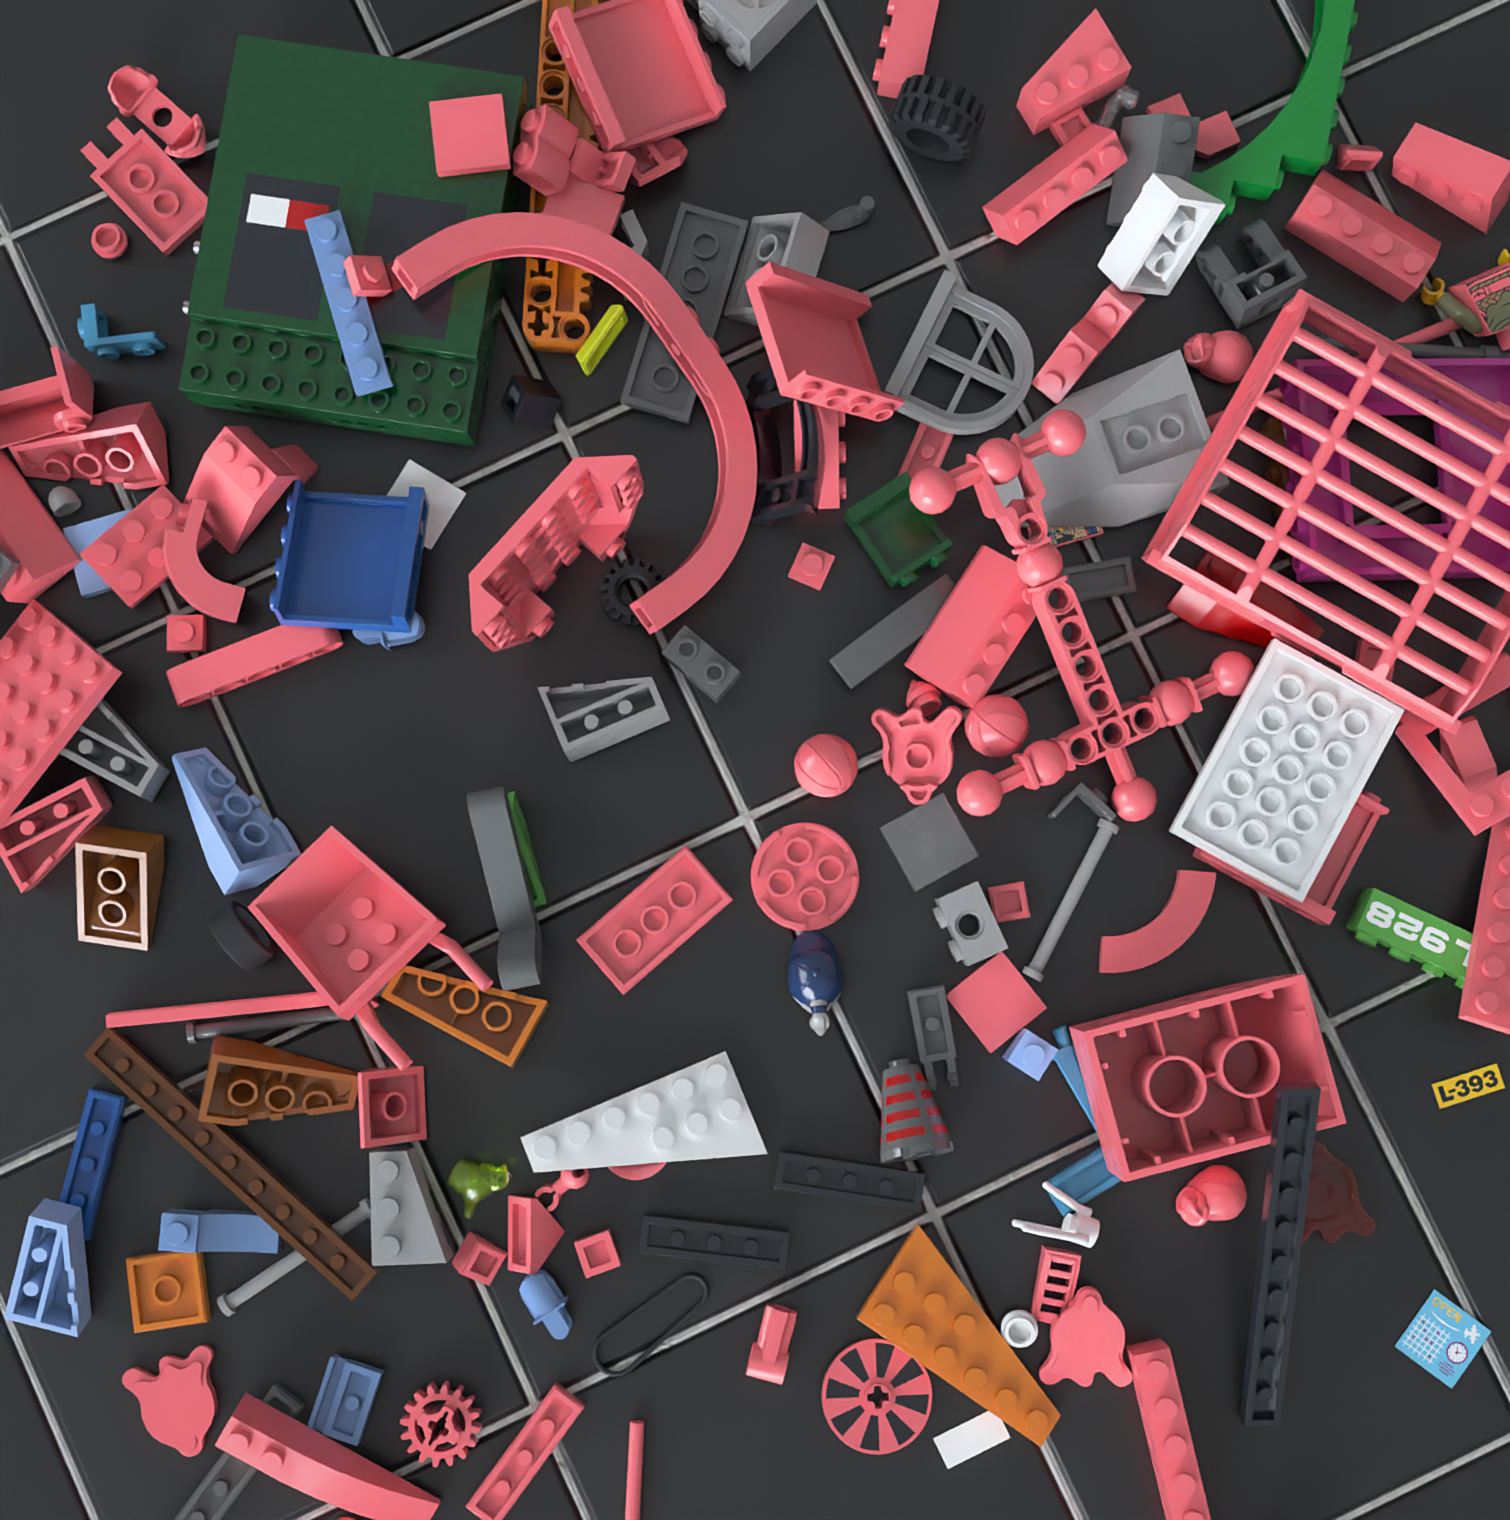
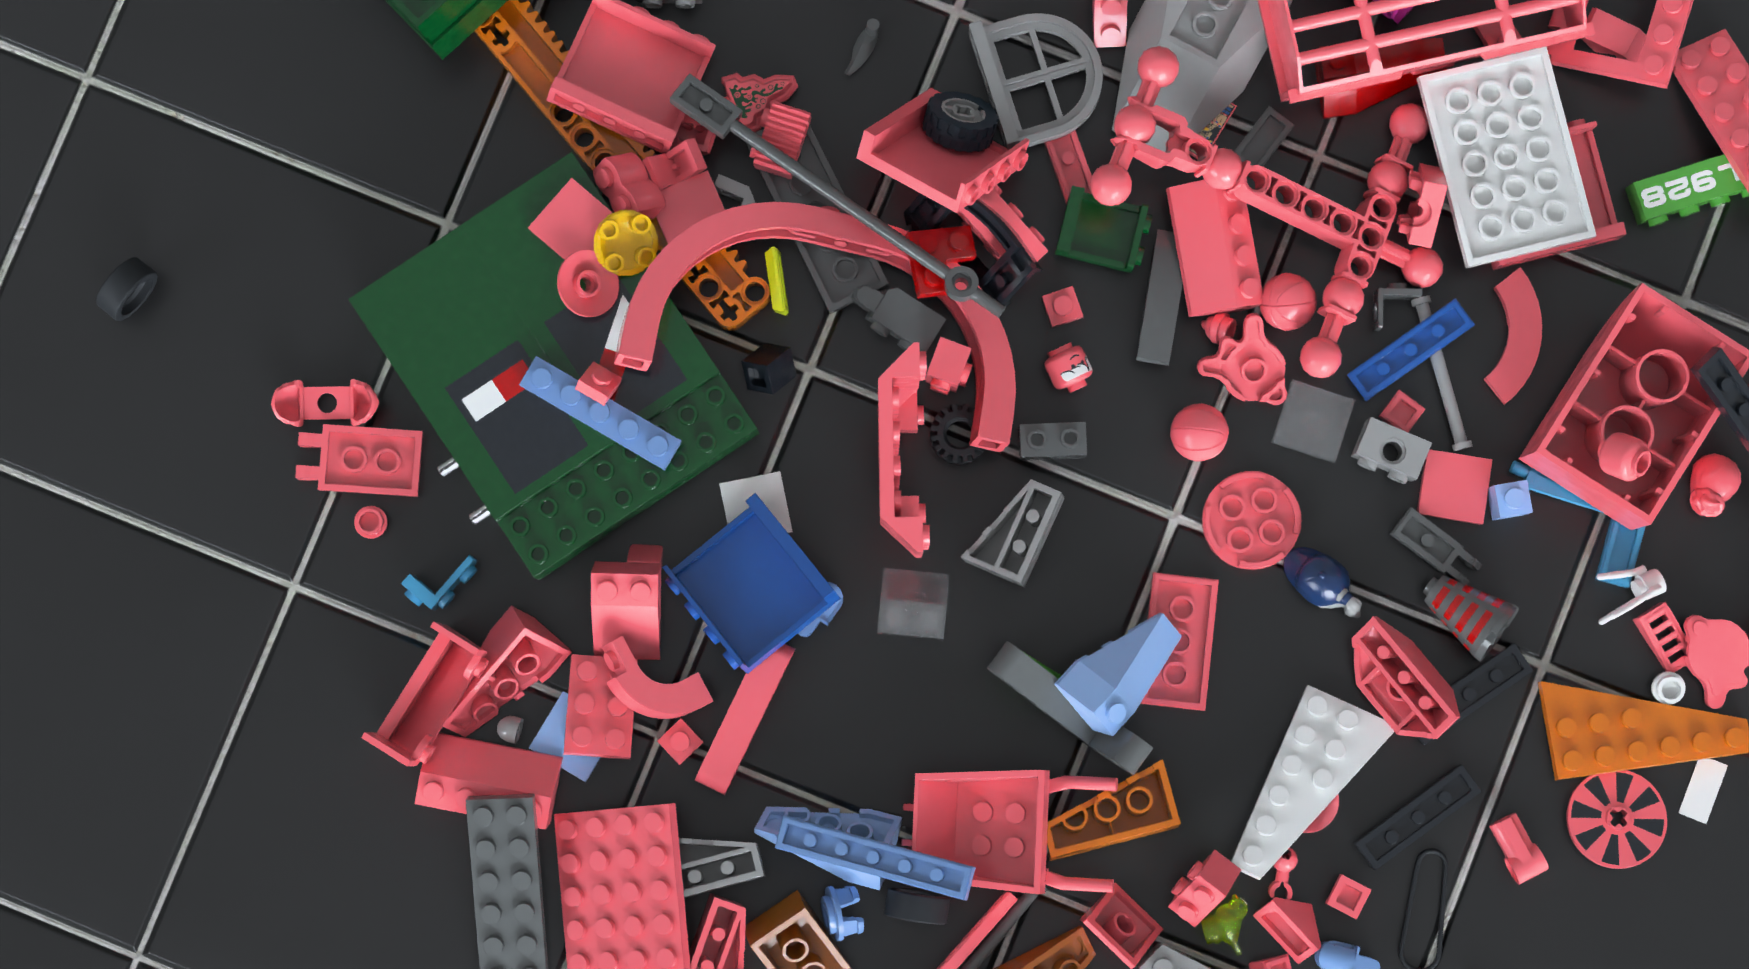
camera: 45 degrees left, 0 degrees up
(172, 896) = (832, 914): none -> medium blue piece
(236, 865) = (875, 857): none -> medium blue tile
(451, 187) = (601, 285): none -> coral dish
(468, 693) = (913, 604): none -> clear slope
(482, 1136) = (1203, 888): none -> coral brick
(495, 181) = (626, 242): none -> yellow dish
(569, 899) = (1117, 677): none -> light blue wedge
(671, 527) = (949, 367): none -> coral brick
(672, 453) = (899, 315): none -> dark grey hinge
(674, 162) = (722, 117): none -> dark grey bar
(706, 225) = (786, 130): none -> coral brick
(718, 179) = (755, 94): none -> coral rock
(739, 421) = (946, 245): none -> red plate
(769, 617) = (1068, 367): none -> coral head
(779, 238) = (839, 118): light grey slope -> none
(802, 1120) = (1402, 682): none -> coral wedge
(863, 339) = (960, 121): none -> black wheel
(1062, 857) = (1410, 349): none -> blue tile
(1152, 1104) = (1624, 456): none -> coral head
(1174, 754) = (1424, 212): none -> coral brick

